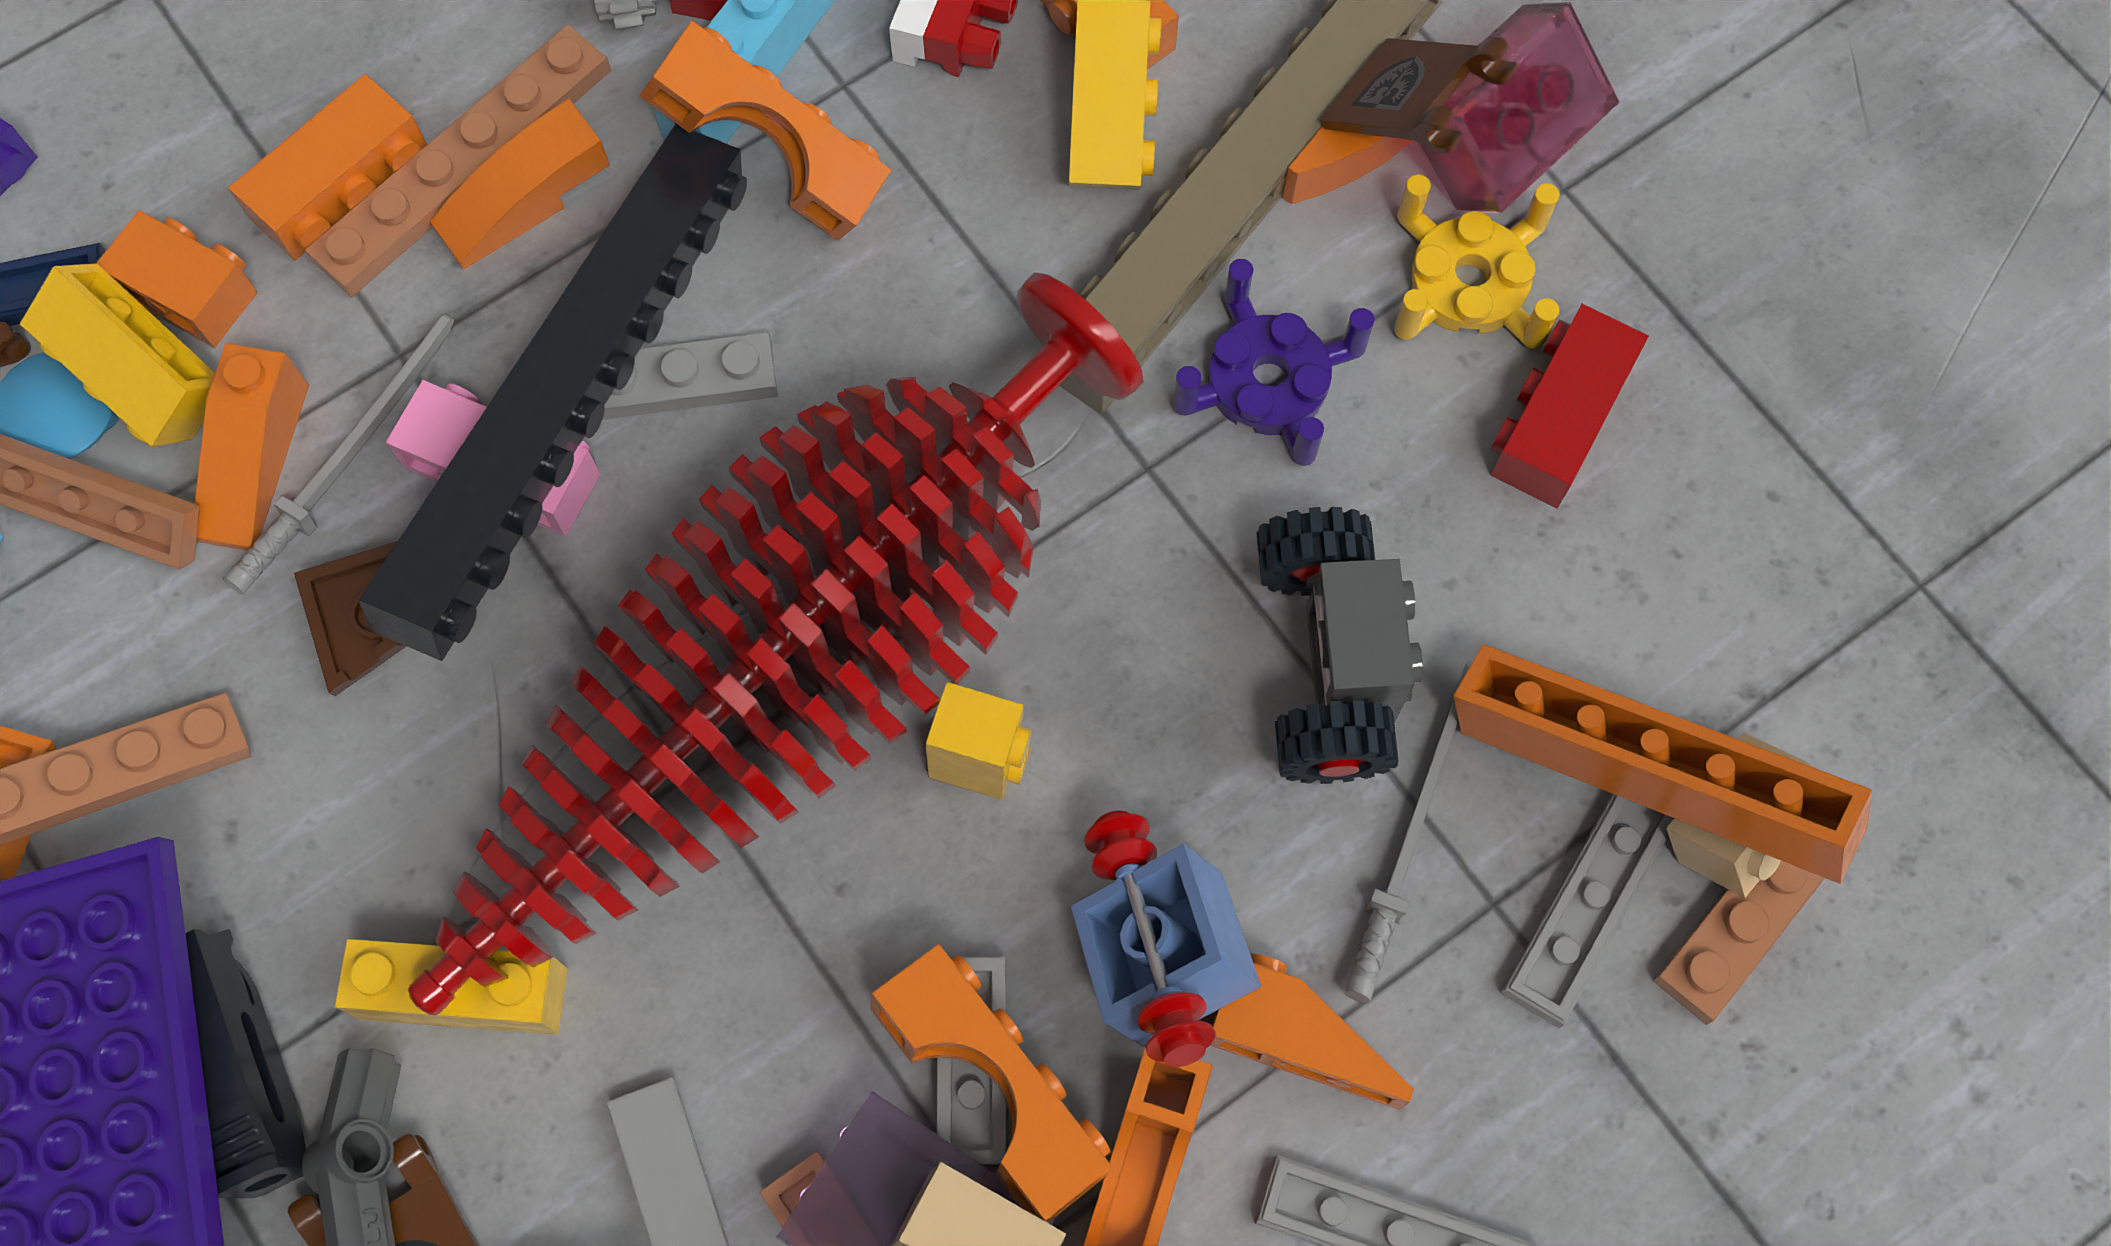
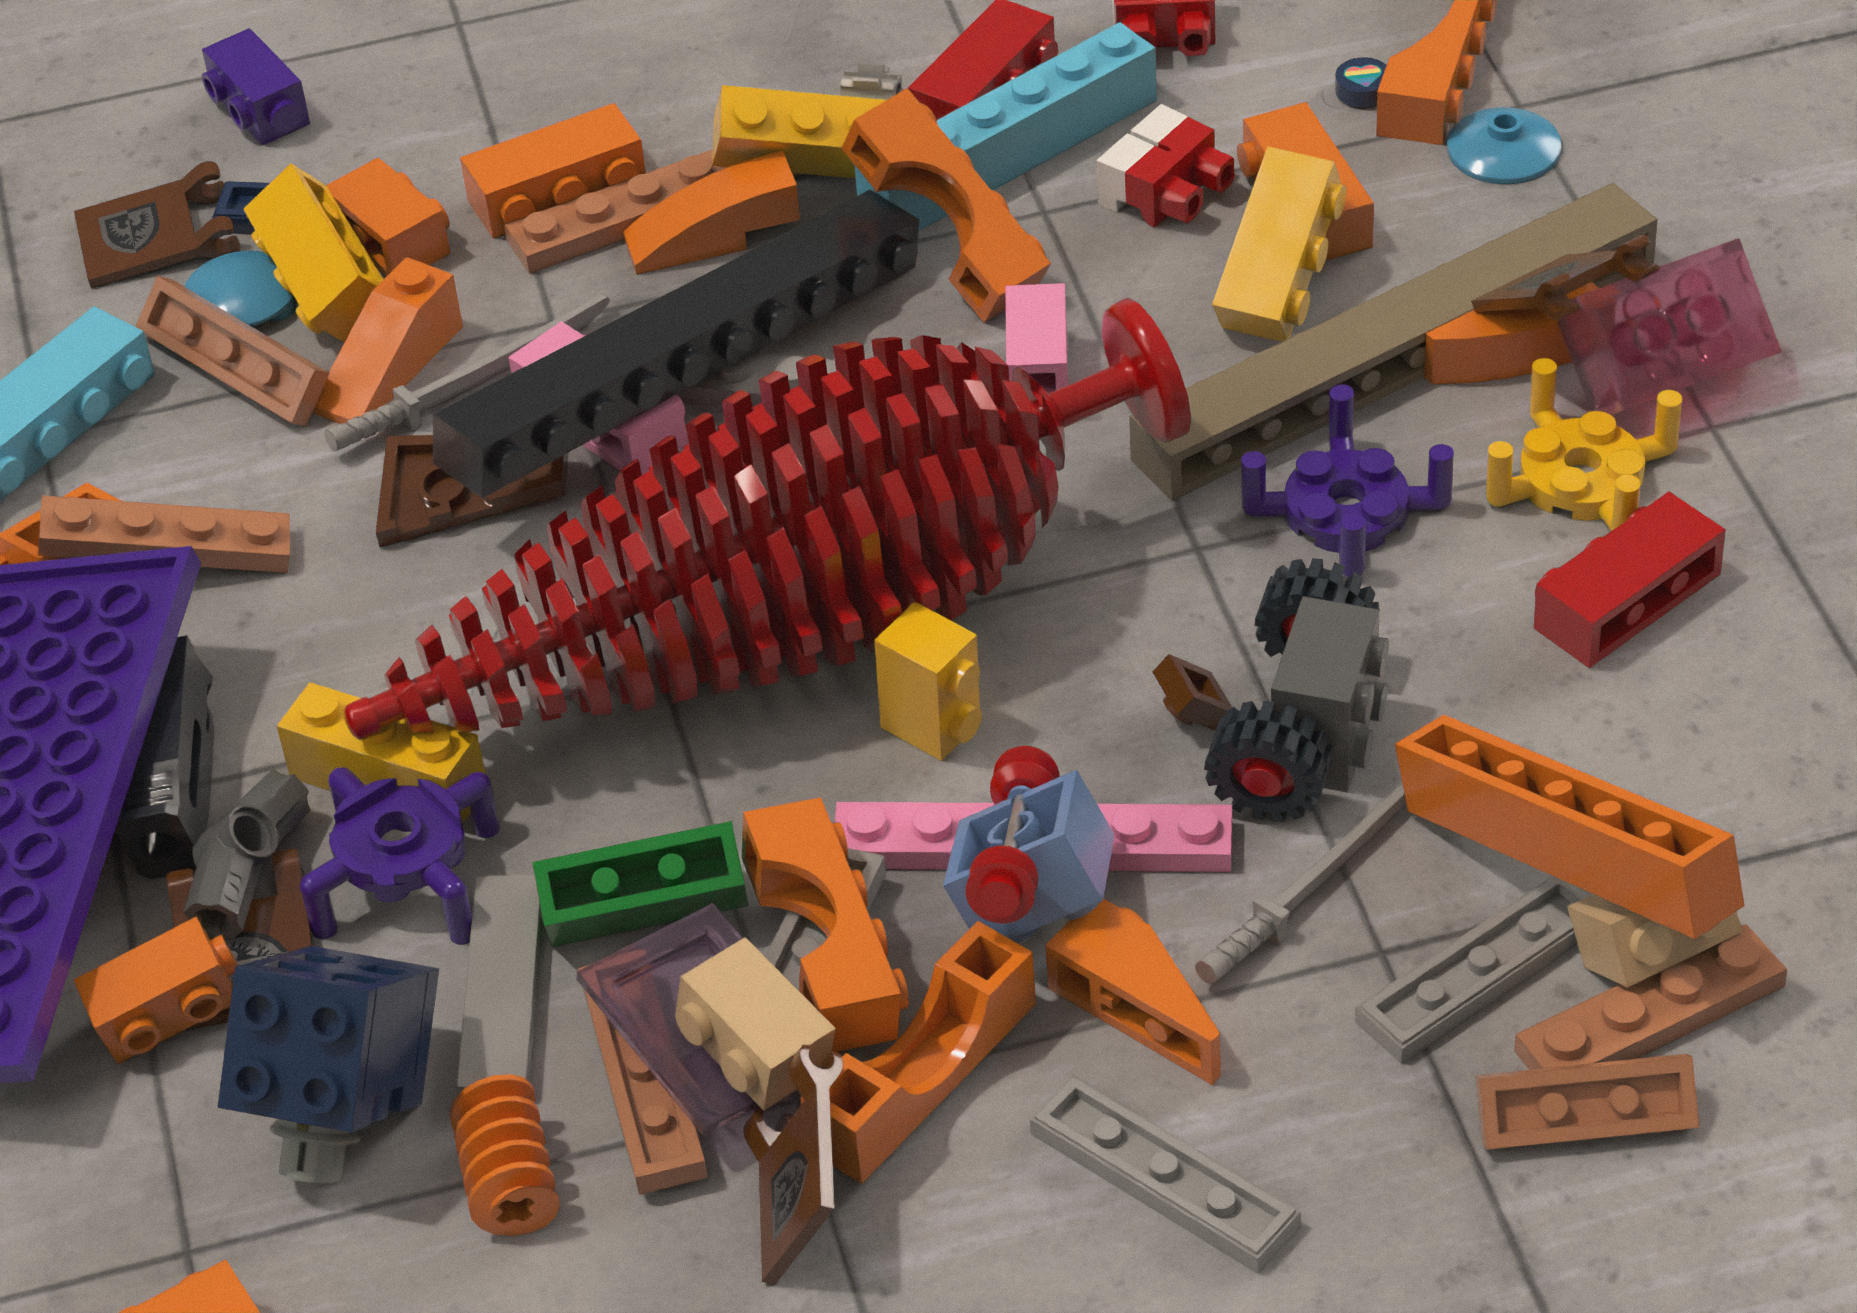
camera: 25 degrees right, 25 degrees down
(544, 1131) = (404, 865): none -> dark purple plate
(574, 65) = (801, 124): none -> yellow brick
(783, 1079) = (639, 883): none -> green brick
(914, 274) = (1038, 333): none -> bright pink brick
(1041, 896) = (1144, 839): none -> bright pink plate
(1221, 662) = (1191, 692): none -> reddish brown plate
(1753, 1038) = (1587, 1101): none -> nougat plate

